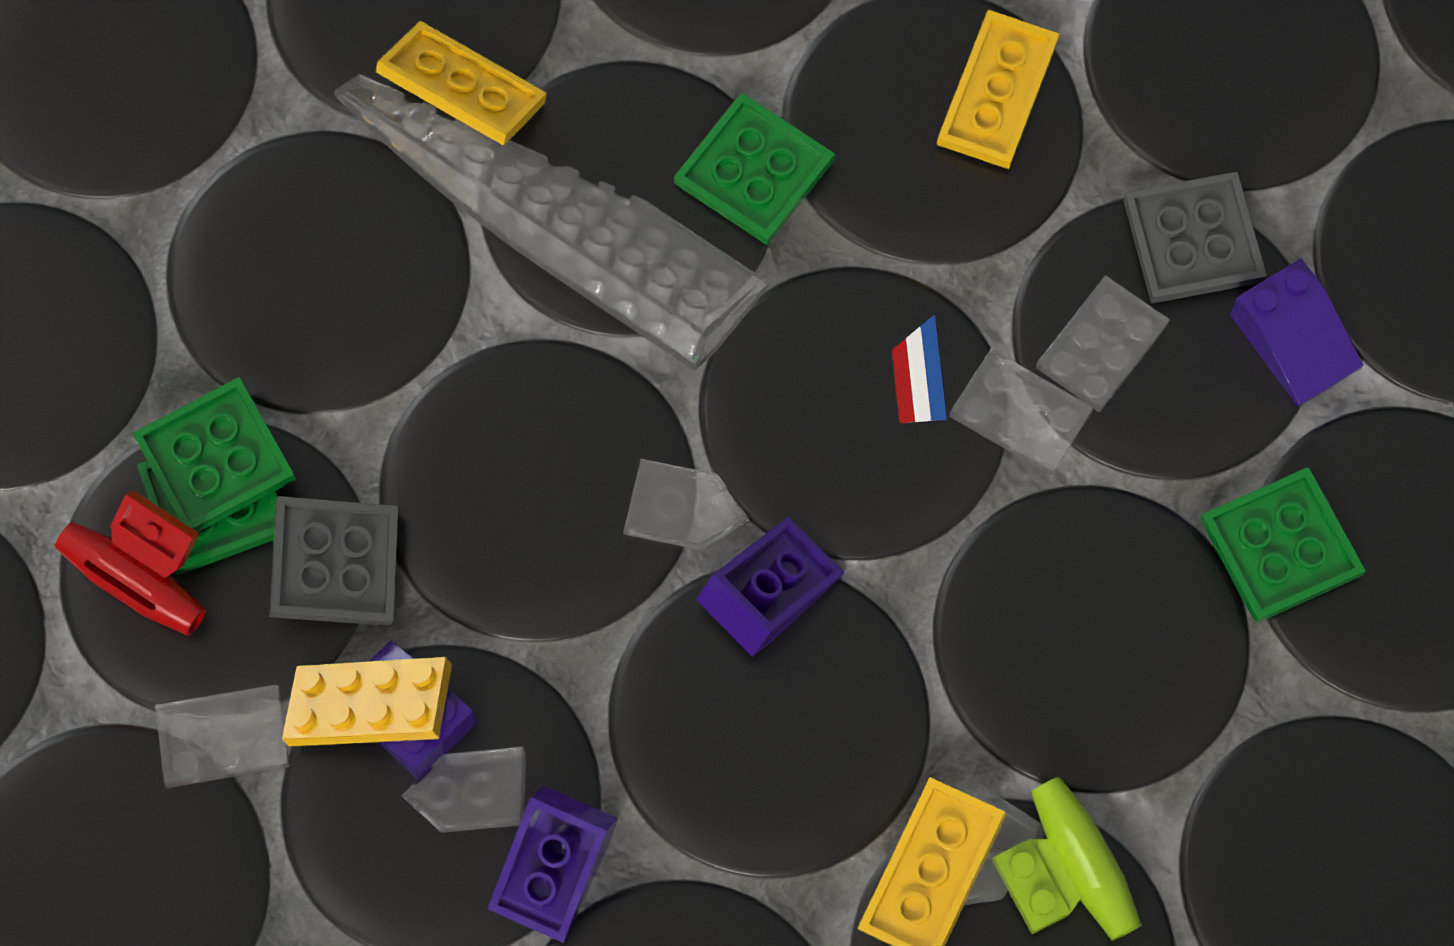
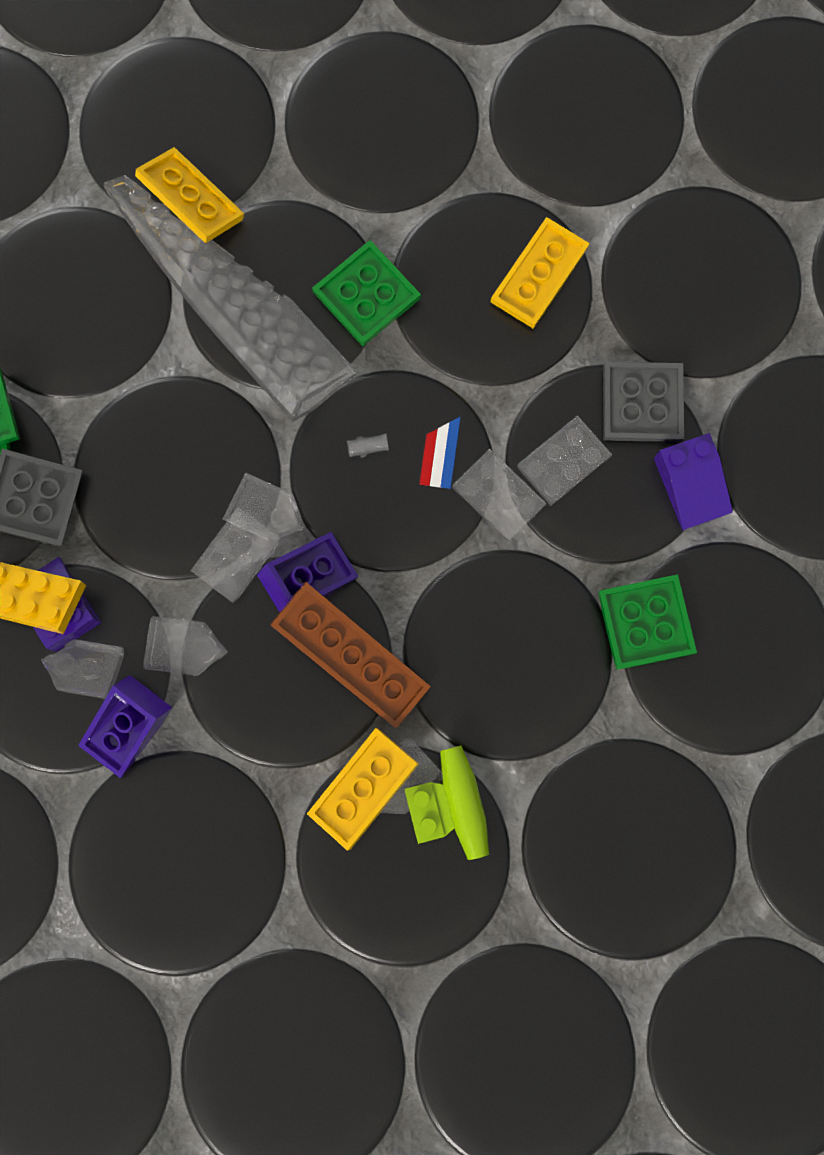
camera: 15 degrees right, 10 degrees up
(607, 731) = (181, 646): none -> clear tile
(657, 578) = (236, 554): none -> clear plate
(804, 385) = (367, 445): none -> clear pin
(867, 680) = (350, 655): none -> dark orange plate

